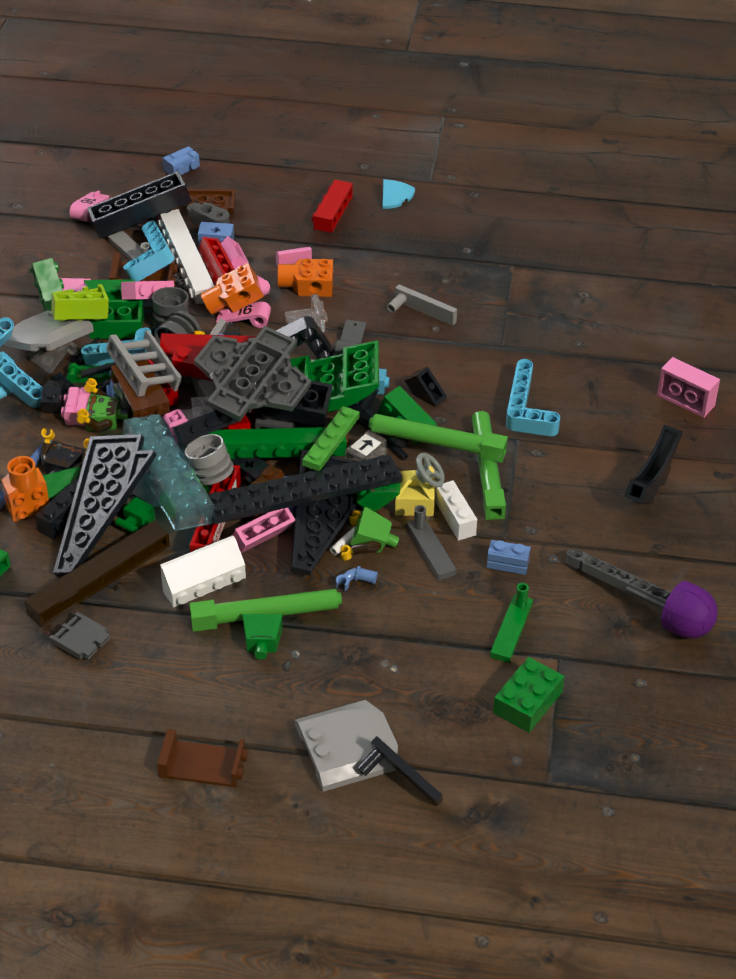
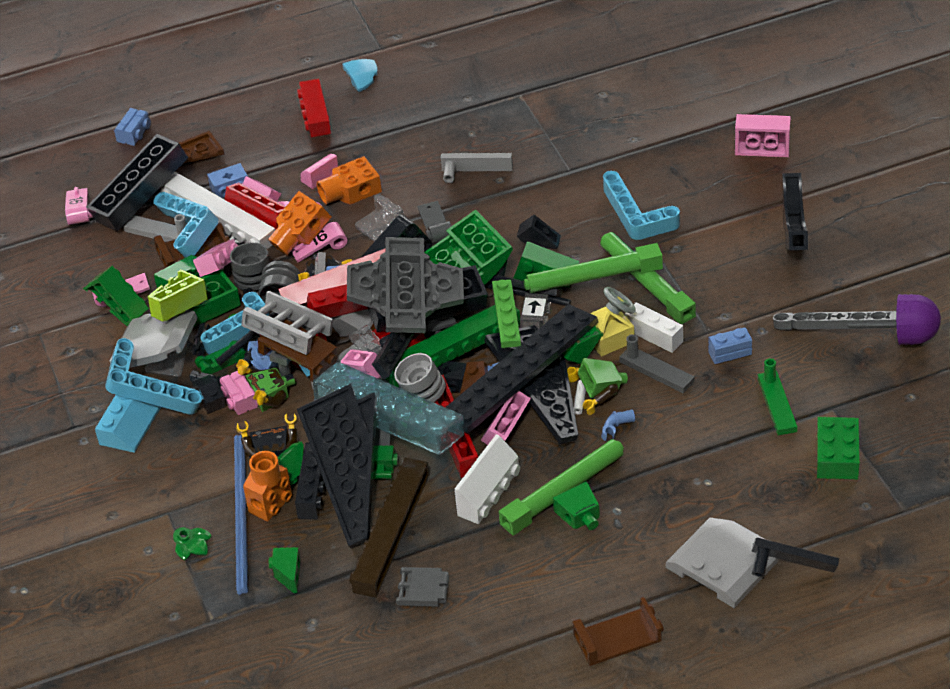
camera: 25 degrees left, 0 degrees up
(207, 213) = (204, 164): dark grey piece -> none

